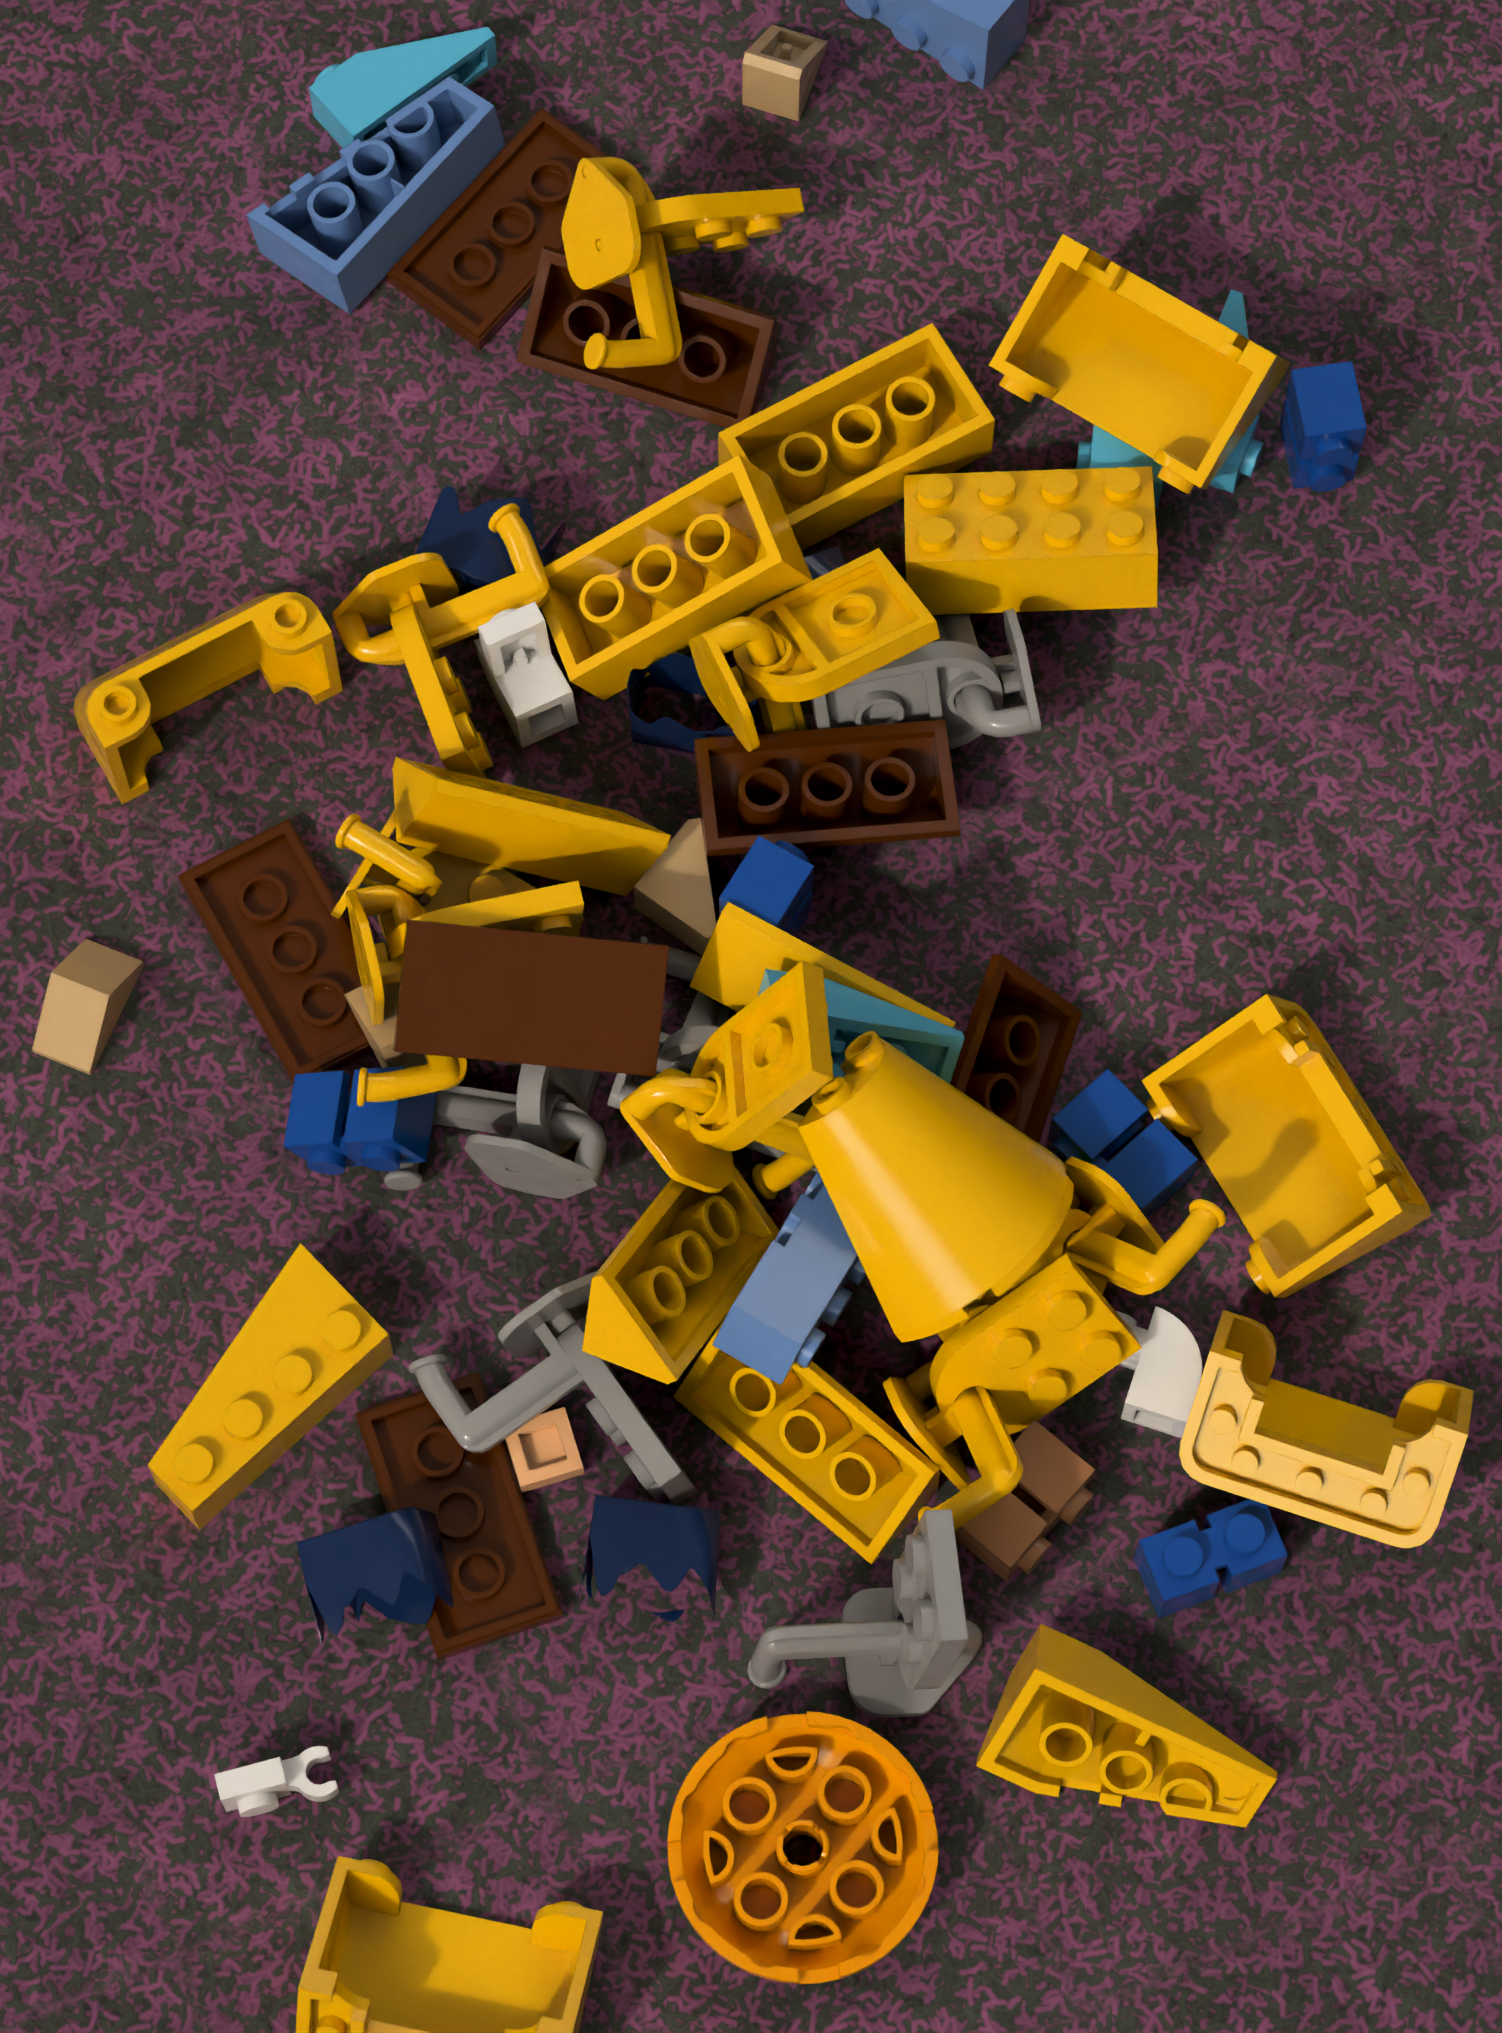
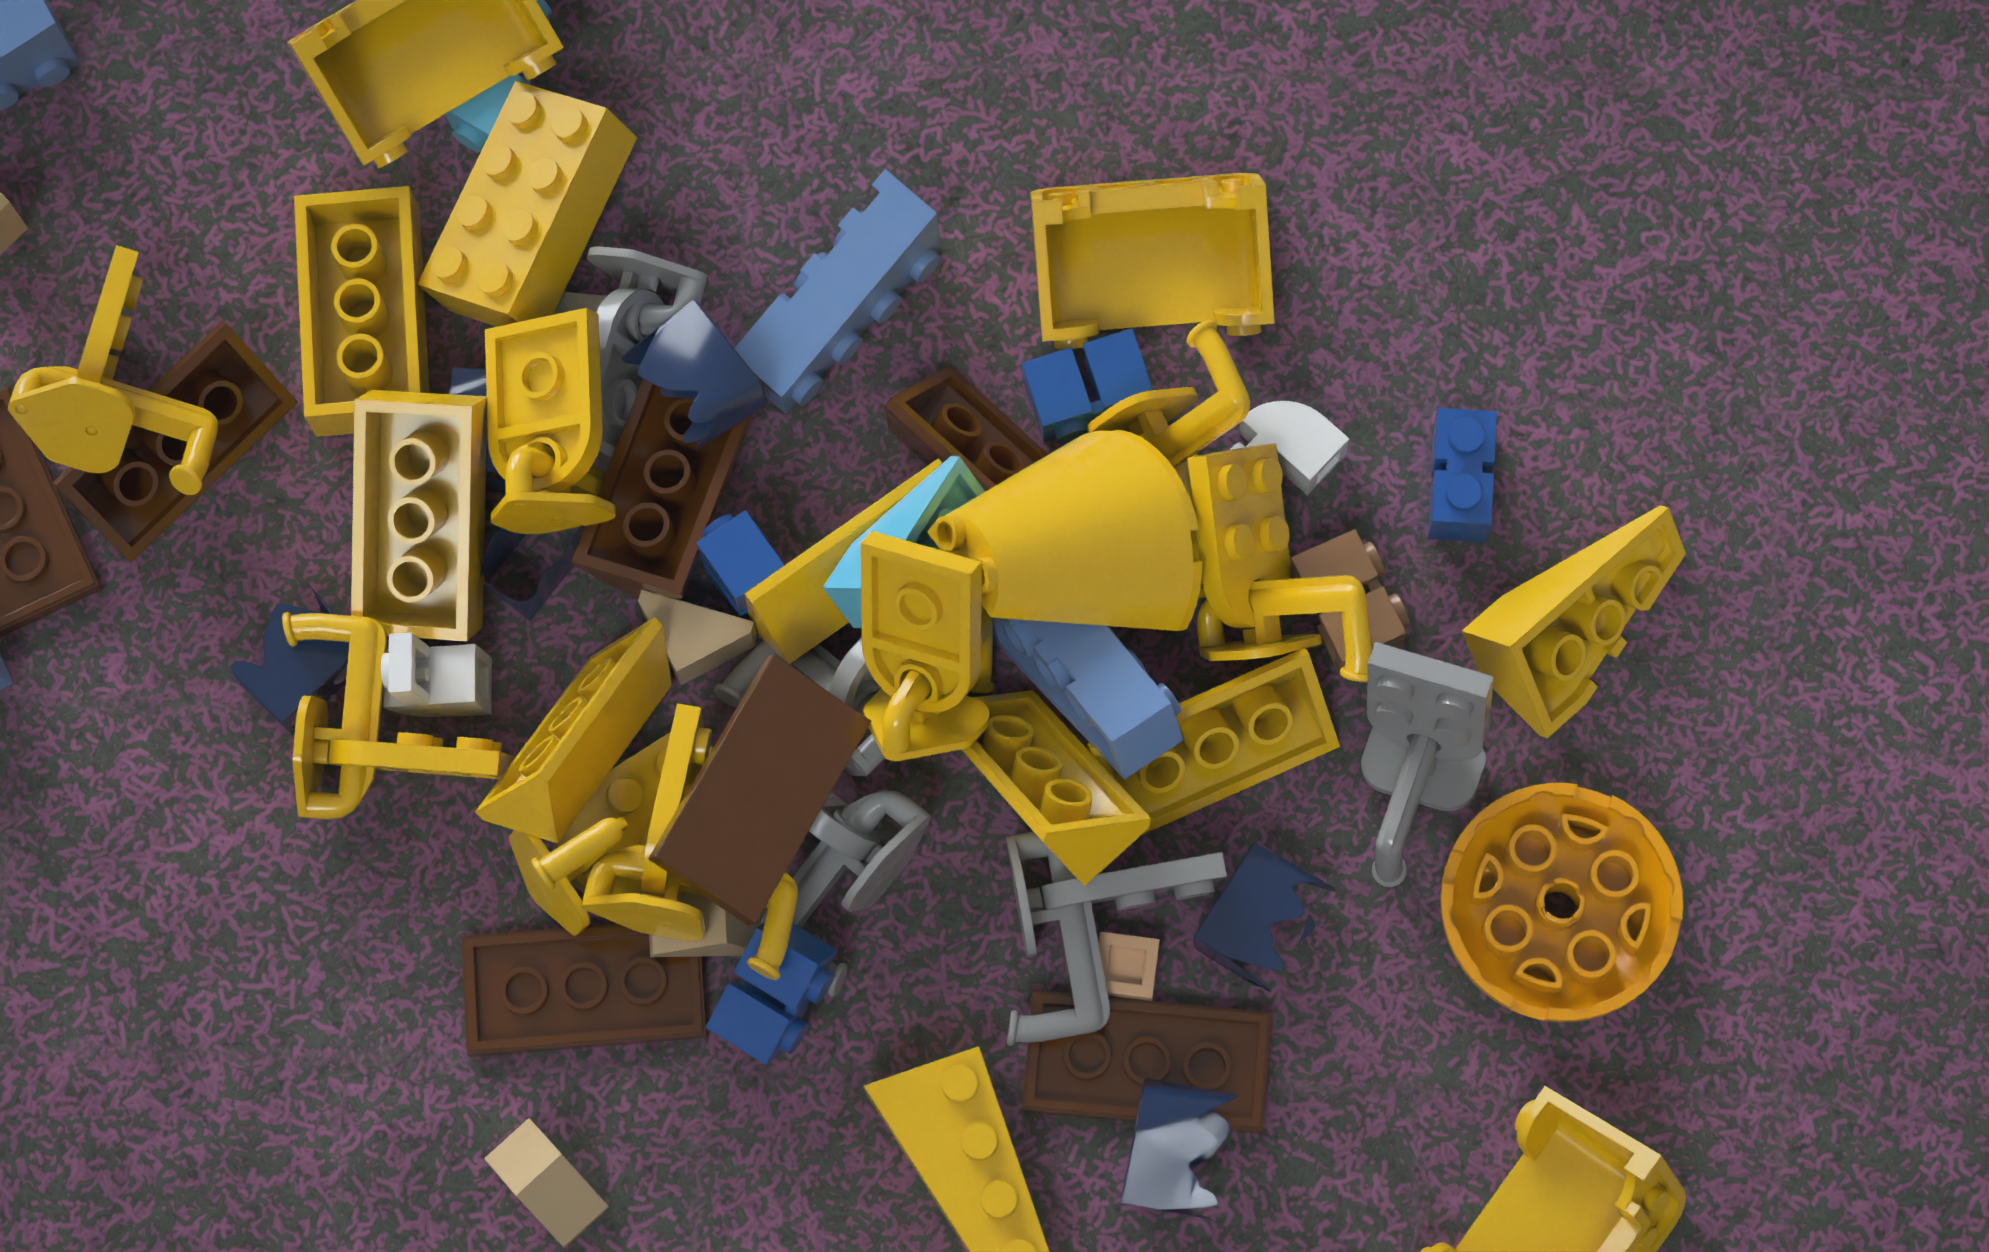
camera: 60 degrees left, 5 degrees up
(271, 633) = (288, 1031): yellow windscreen -> none
(946, 758) = (697, 362): none -> dark blue piece
(1093, 870) = (843, 293): none -> medium blue wedge
(1318, 1452) = (1429, 342): yellow windscreen -> none

